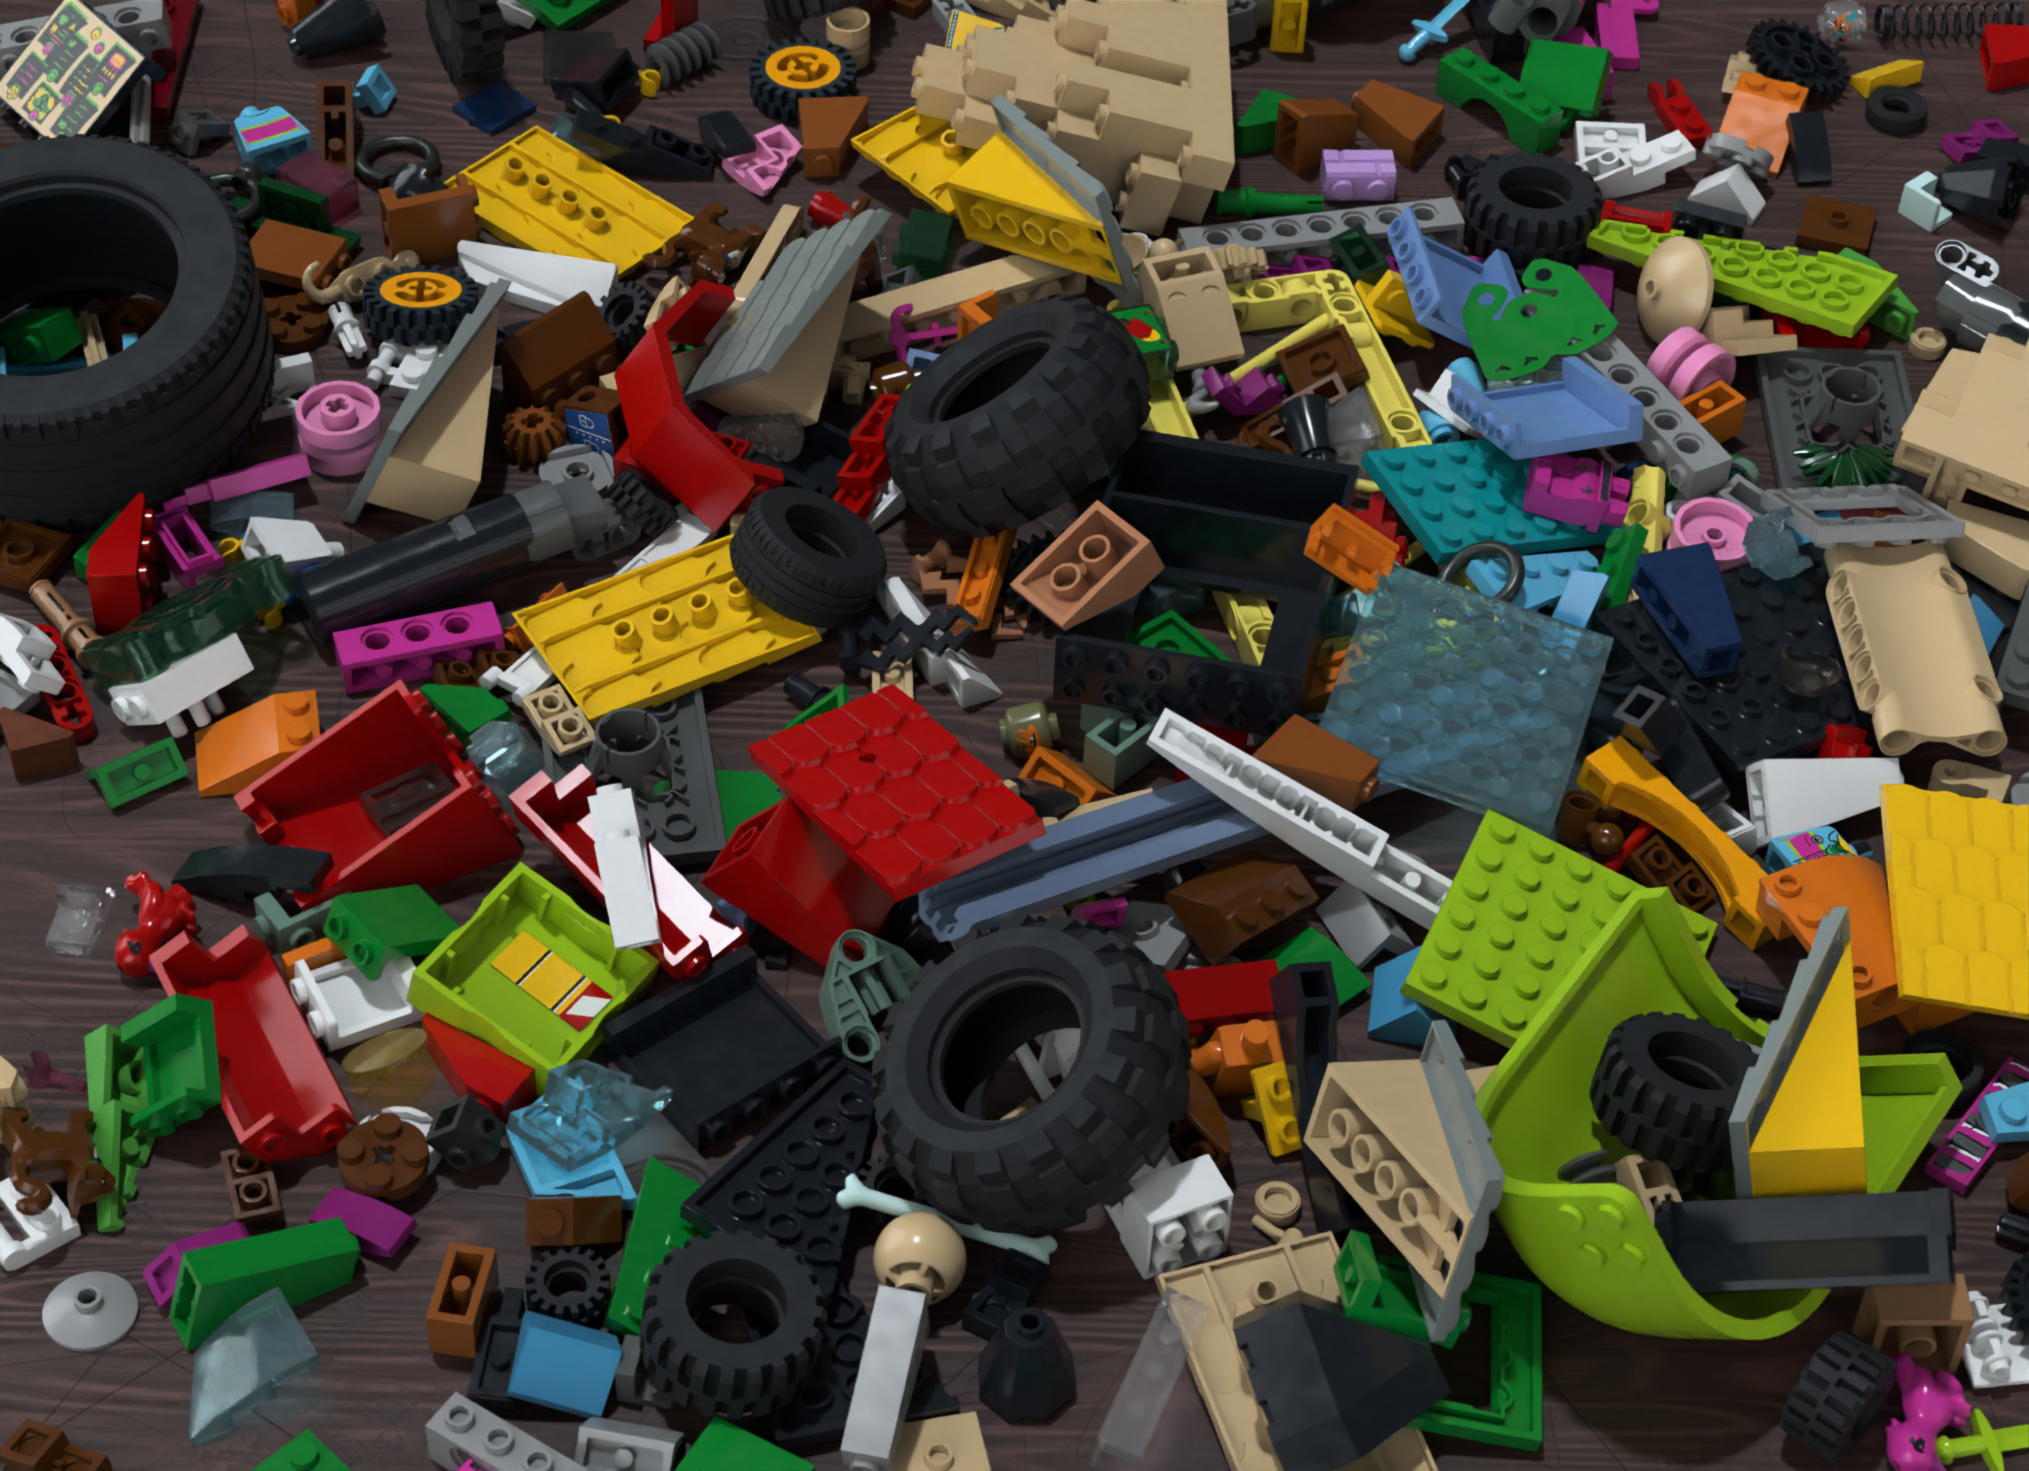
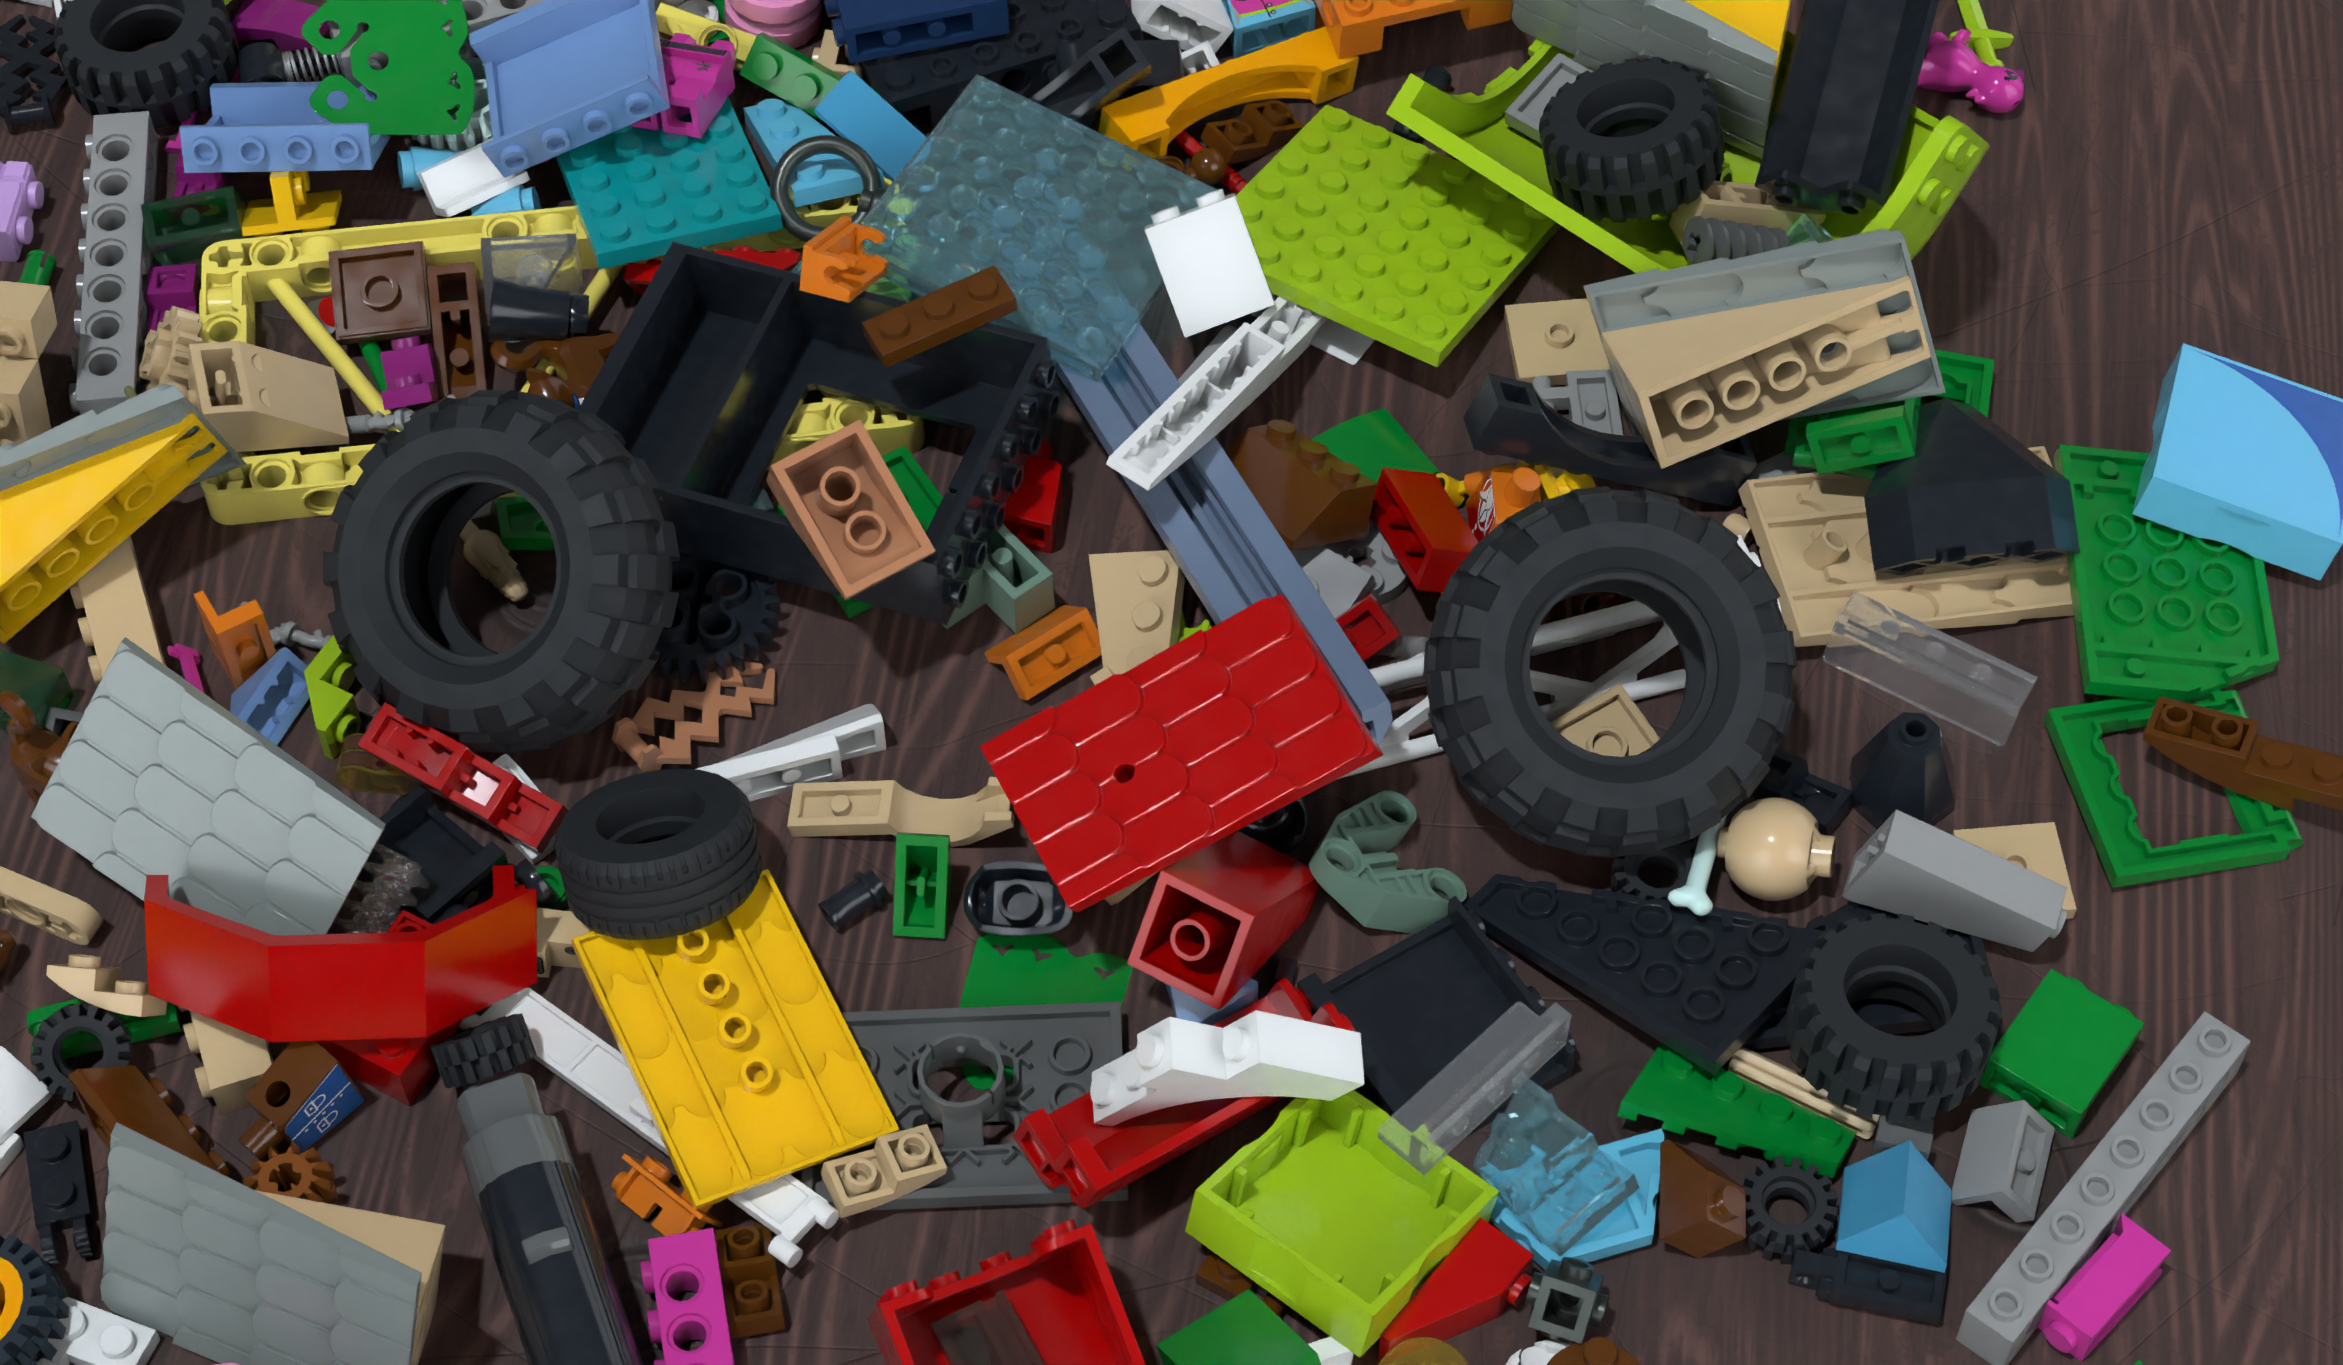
camera: 80 degrees left, 10 degrees up
(462, 1299) = (1817, 1310): dark orange brick -> none
(465, 708) = (841, 1288): green slope -> none
(505, 754) = (931, 1239): clear light blue hair -> none
(551, 980) = (1324, 1202): yellow sticker -> none
(579, 460) = (390, 1168): light grey plate -> none
(647, 1050) = (1474, 1084): none -> clear panel
(891, 379) = (300, 740): reddish brown head -> none
(919, 636) = (799, 755): black piece -> none
(983, 578) = (714, 693): orange tile -> none
(1027, 727) = (957, 673): olive head -> none
(1045, 797) = (1073, 670): black slope -> none
(1151, 338) = (317, 456): brick -> none
(1306, 610) = (939, 316): none -> reddish brown plate
(1321, 762) = (1136, 367): dark orange slope -> none
(1362, 925) = (1307, 398): light grey panel -> none
(1395, 1015) = (1408, 386): dark azure slope -> none
(1448, 806) = (1208, 262): none -> white panel
(1838, 1395) = (1979, 98): black tyre -> none

